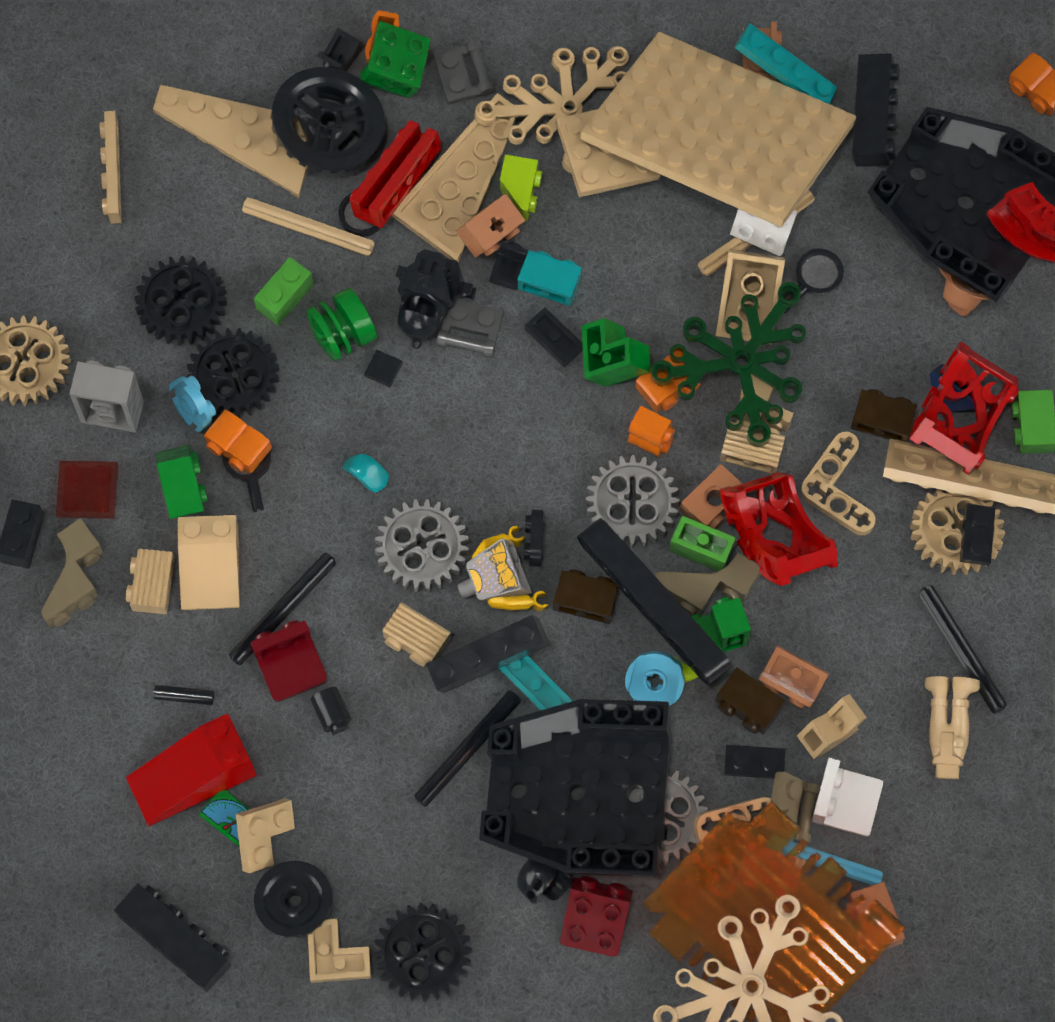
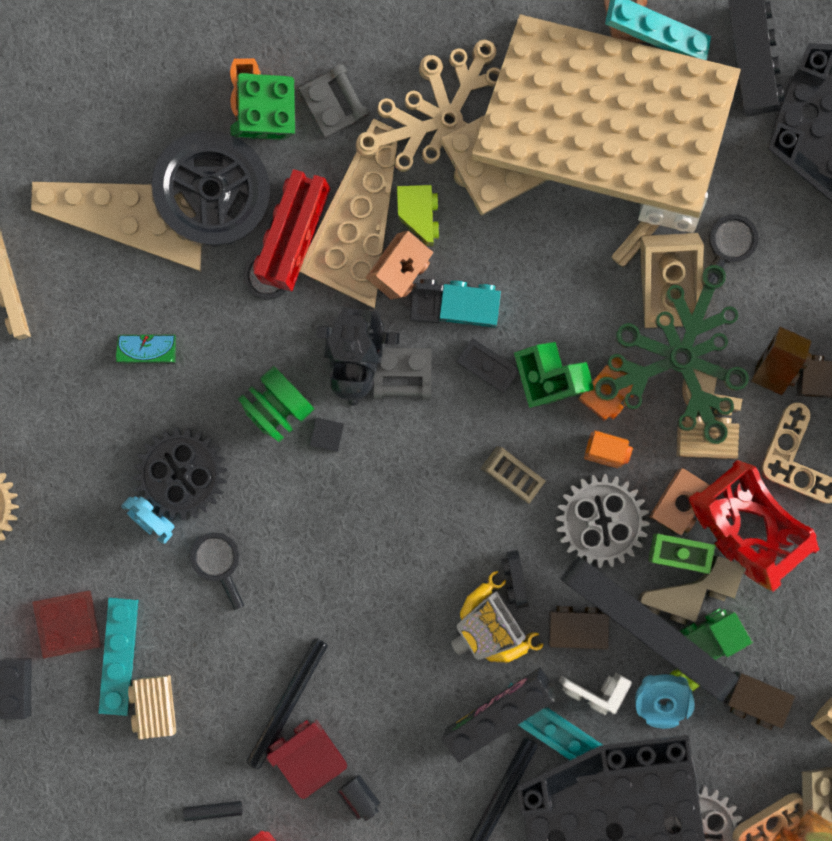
camera: 10 degrees left, 15 degrees up
(73, 587) = (79, 727): dark tan arch -> none
(107, 396) = (61, 535): light grey brick -> none
(129, 530) = (118, 656): none -> teal plate
(179, 482) = (154, 601): green brick -> none
(198, 315) = (89, 394): black gear -> none
(209, 562) = (204, 675): tan slope -> none
(229, 256) = (146, 349): none -> slope
(237, 442) = (203, 549): orange brick -> none
(283, 291) = (210, 378): bright green brick -> none
(308, 226) = (217, 301): tan axle -> none
(340, 50) = (204, 106): black bracket -> none
(367, 471) = (335, 546): teal hair -> none
(415, 635) = (423, 705): tan brick -> none
(432, 568) = (423, 632): light grey gear -> none
(540, 441) = (492, 461): none -> dark tan slope
(592, 666) = (613, 689): none -> white bracket
(753, 761) = (774, 756): black plate -> none
(793, 677) = (795, 667): nougat bracket -> none
(838, 385) = (781, 361): none -> dark brown brick

